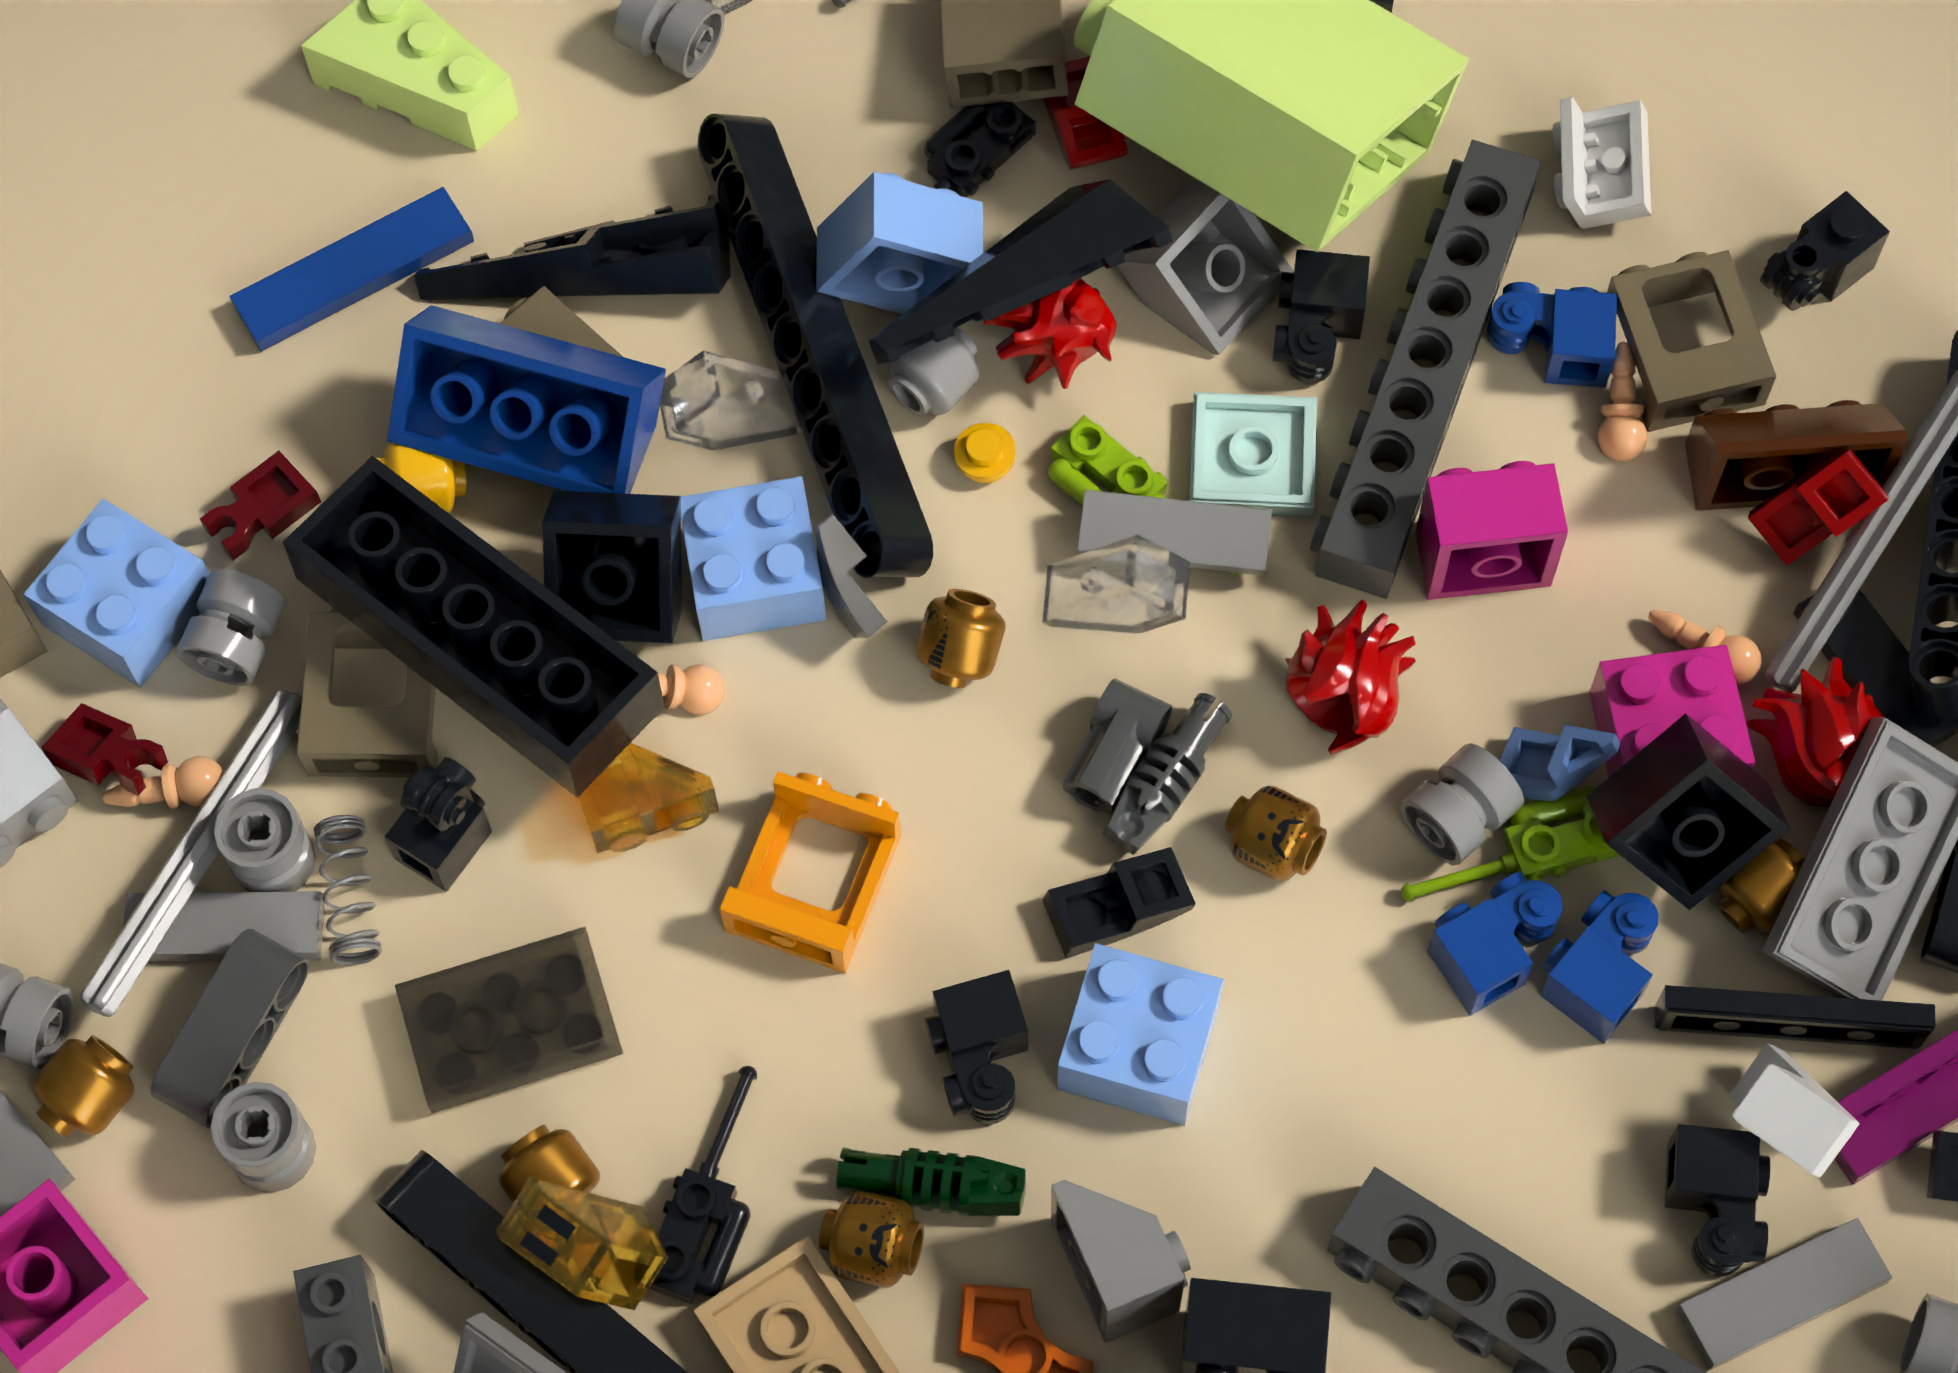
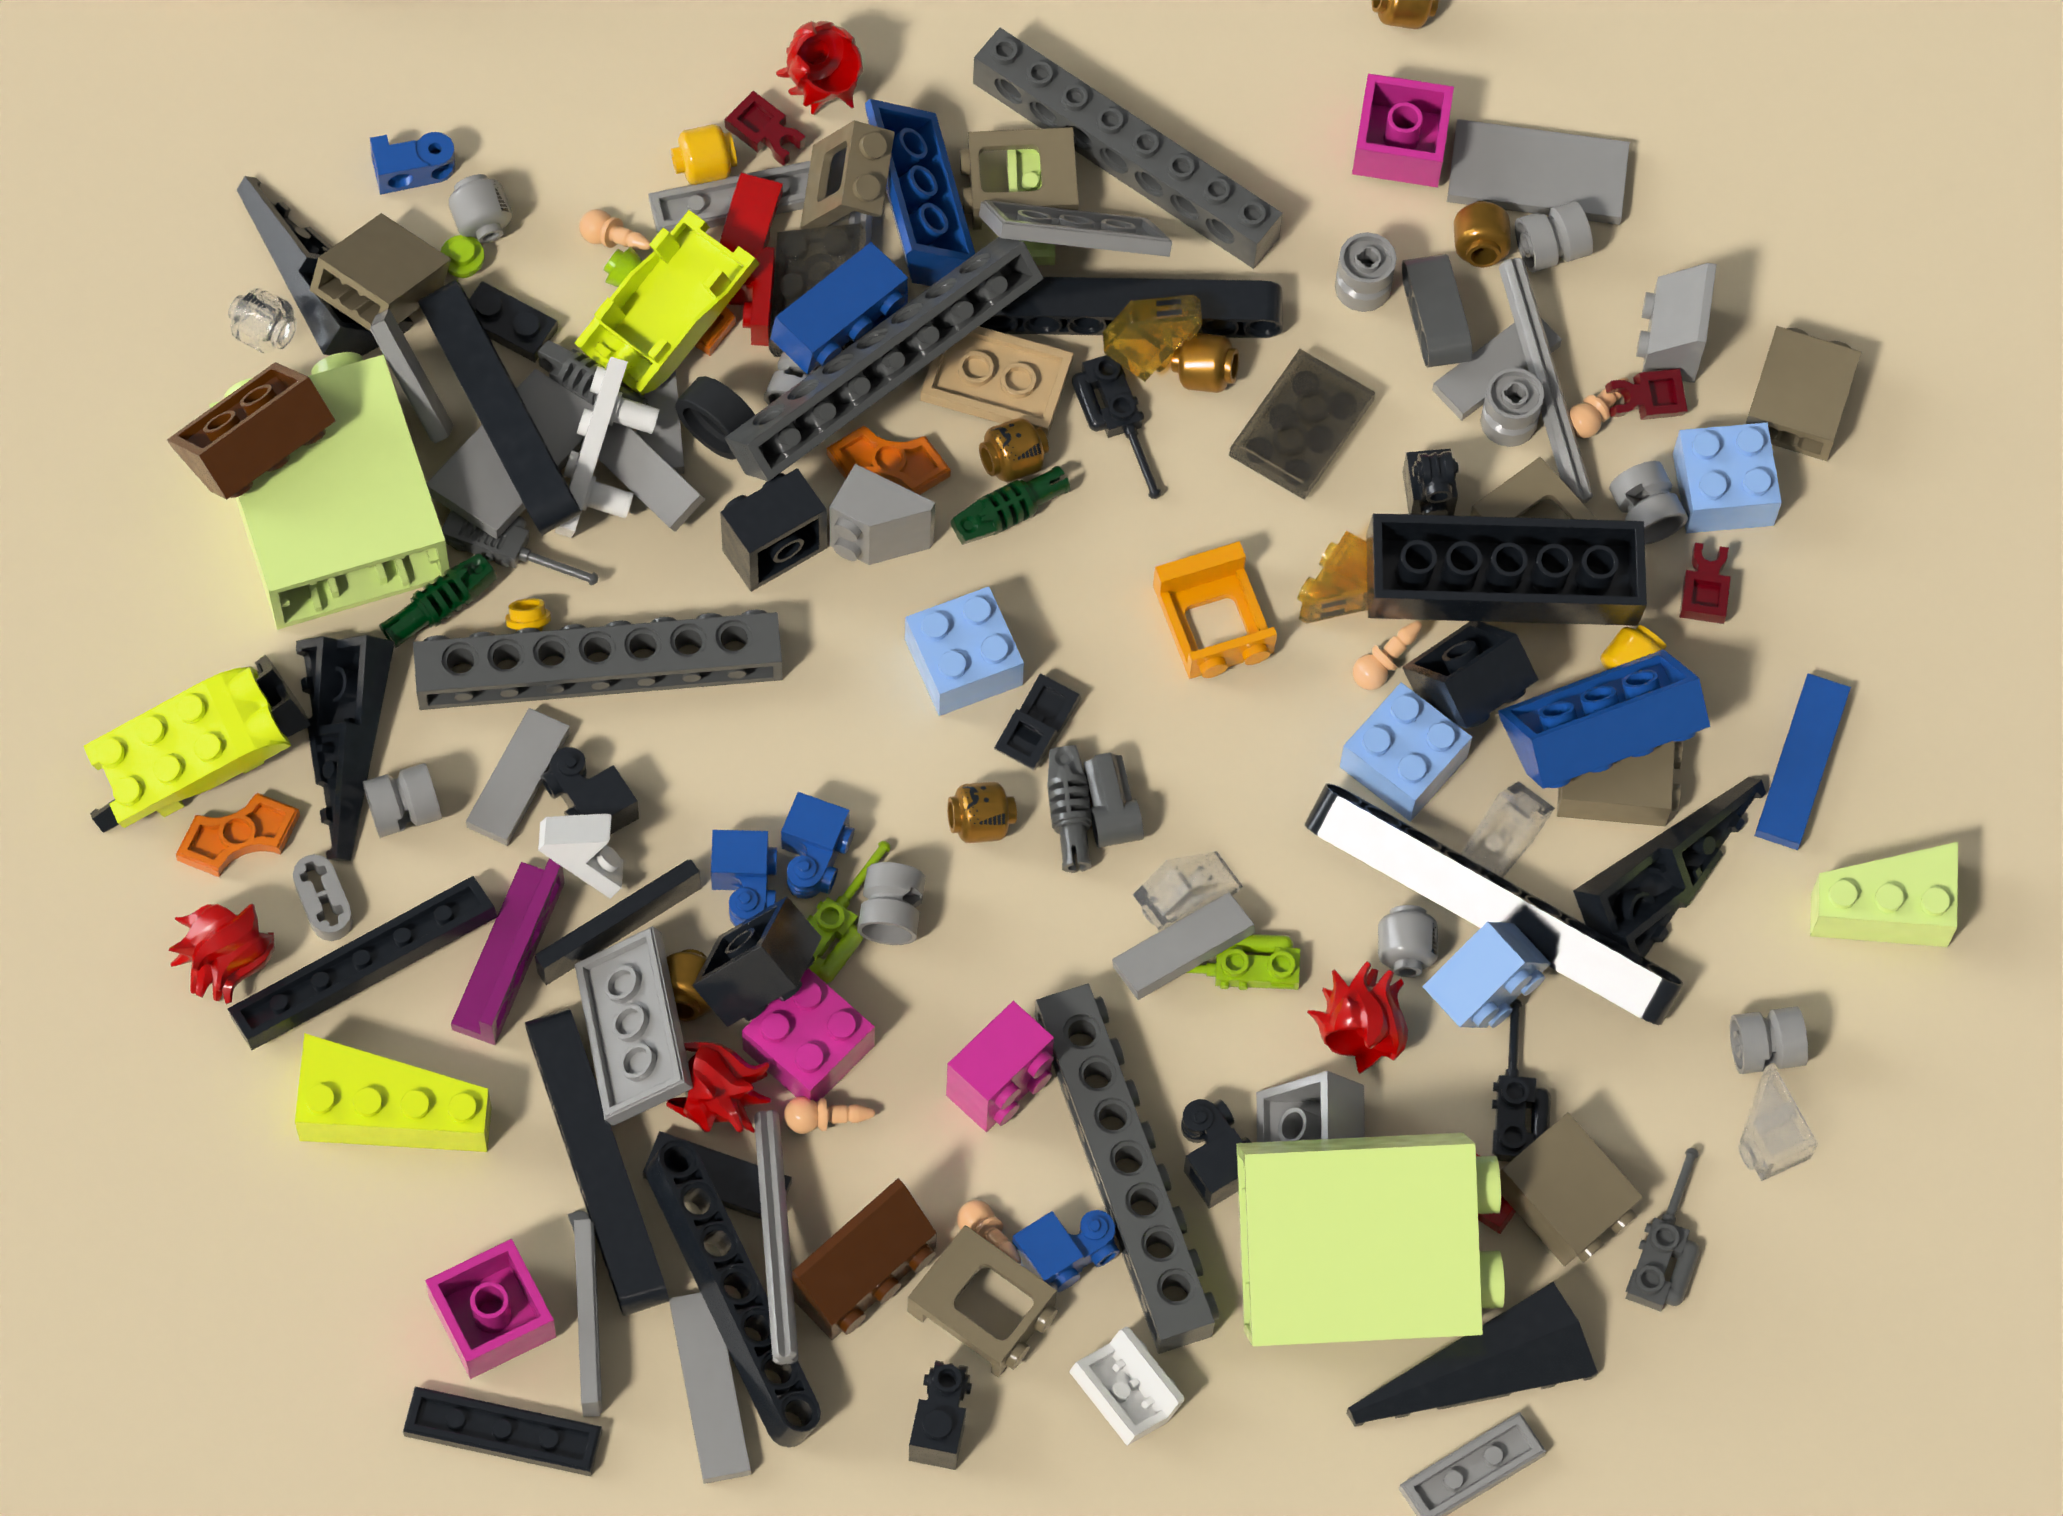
camera: 135 degrees right, 0 degrees up
(355, 939) = (1483, 449): light grey piece -> none
(836, 557) = (1333, 765): slope -> none
(960, 637) = (1248, 790): pearl gold head -> none
(974, 1027) = (1055, 590): black brick -> none
(984, 452) = (1336, 921): yellow plate -> none
(1056, 246) = (1391, 1028): black wedge -> none
(1254, 452) = (1183, 1042): light aqua tile -> none
(1349, 677) = (1012, 923): red hair -> none
(1554, 764) = (863, 966): medium blue slope -> none
(1817, 506) = (818, 1222): red slope -> none

